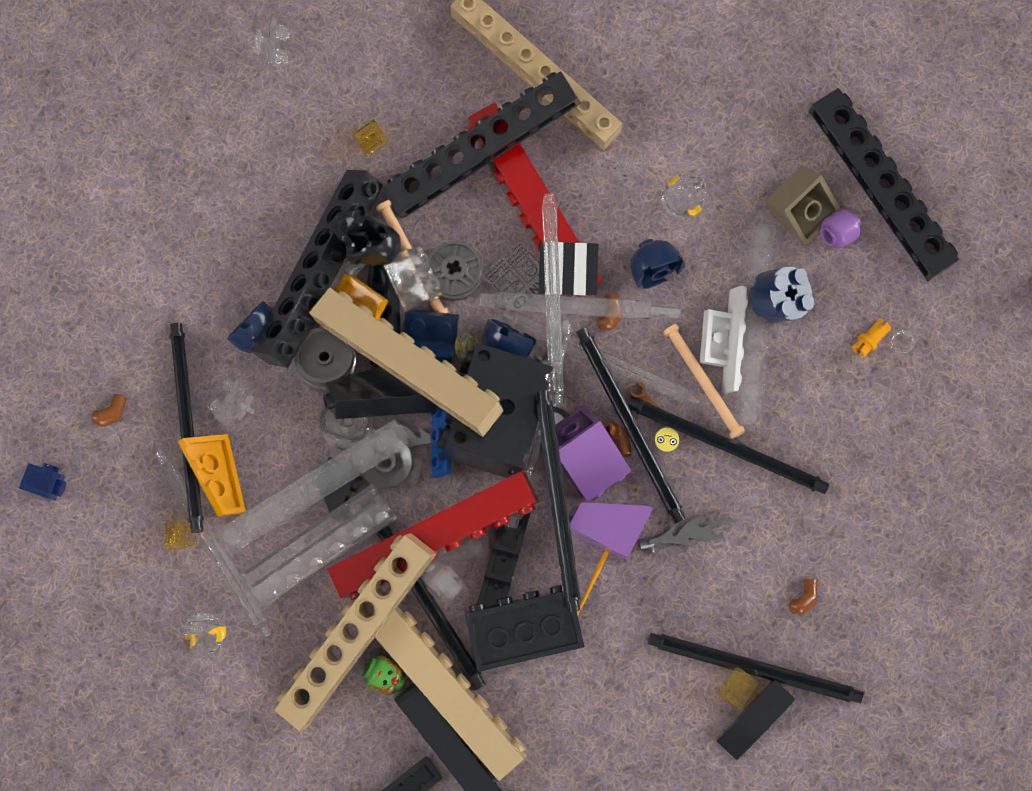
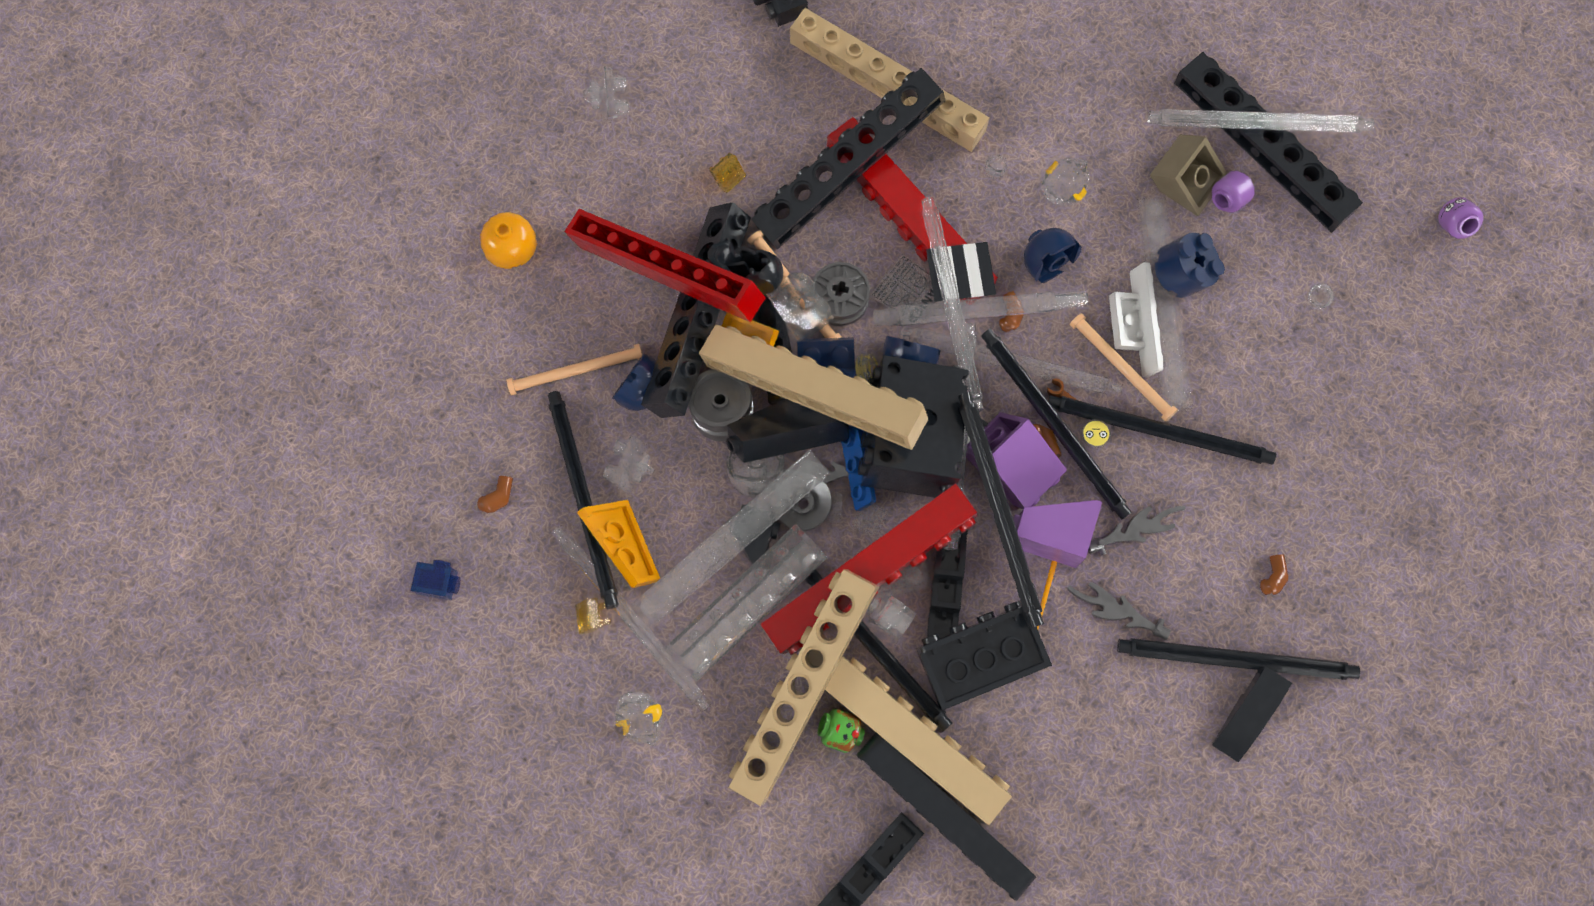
camera: 10 degrees left, 5 degrees down
(156, 171) = (508, 240): none -> light orange cylinder
(198, 304) = (574, 369): none -> light nougat bar
(292, 224) = (666, 265): none -> red brick
(652, 606) = (1114, 611): none -> flat silver piece
(737, 688) = (1225, 683): clear yellow panel -> none
(868, 341) = (1285, 300): light orange pin -> none
(878, 165) = (1259, 120): none -> clear piece

